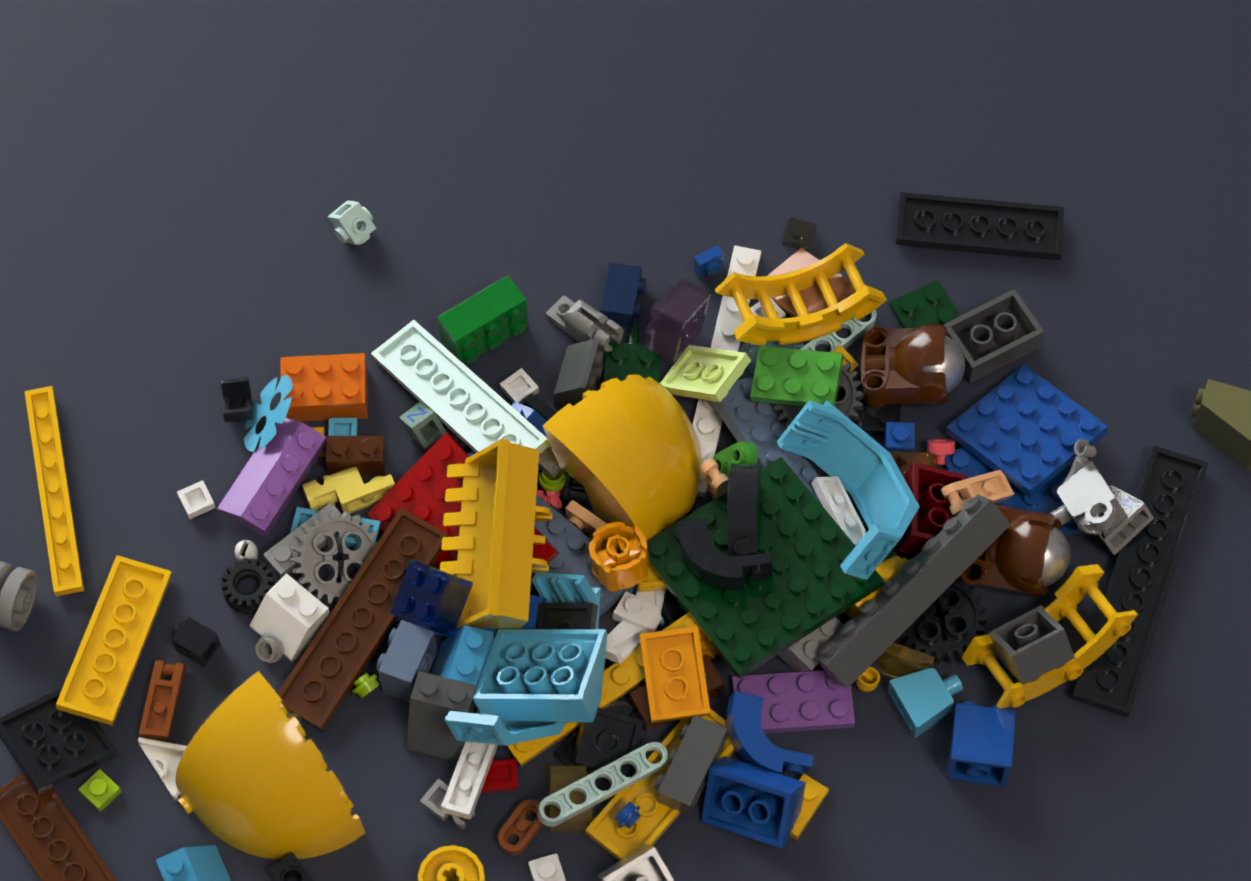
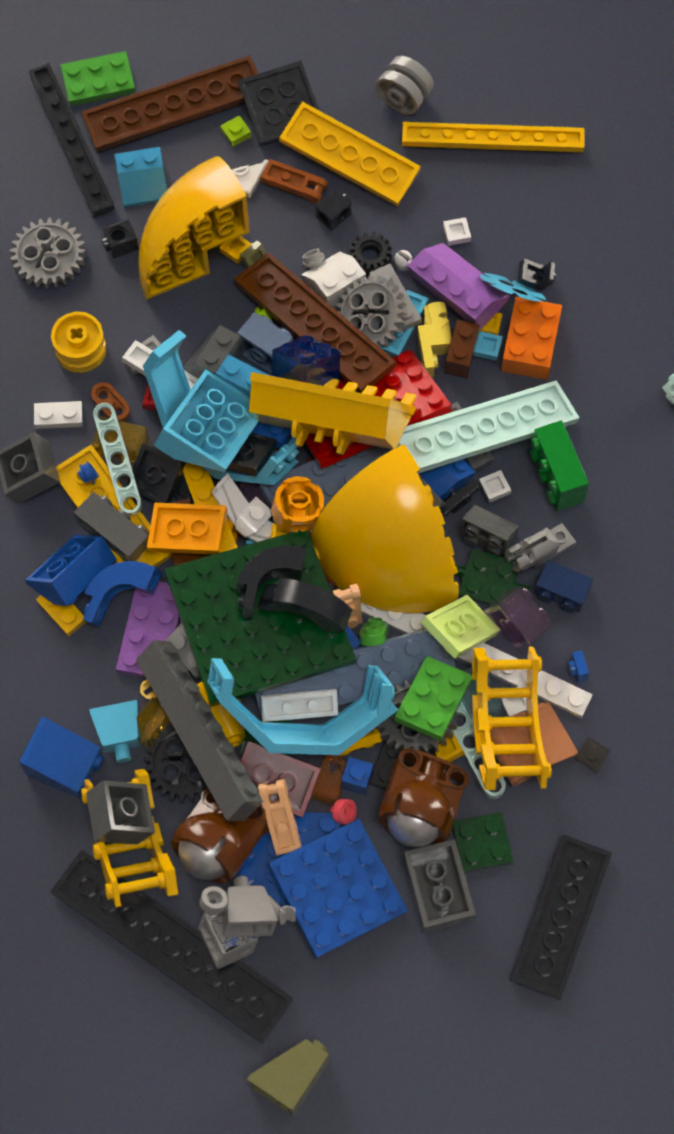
camera: 105 degrees right, 5 degrees up
(422, 425) = (473, 395): sand green brick -> none

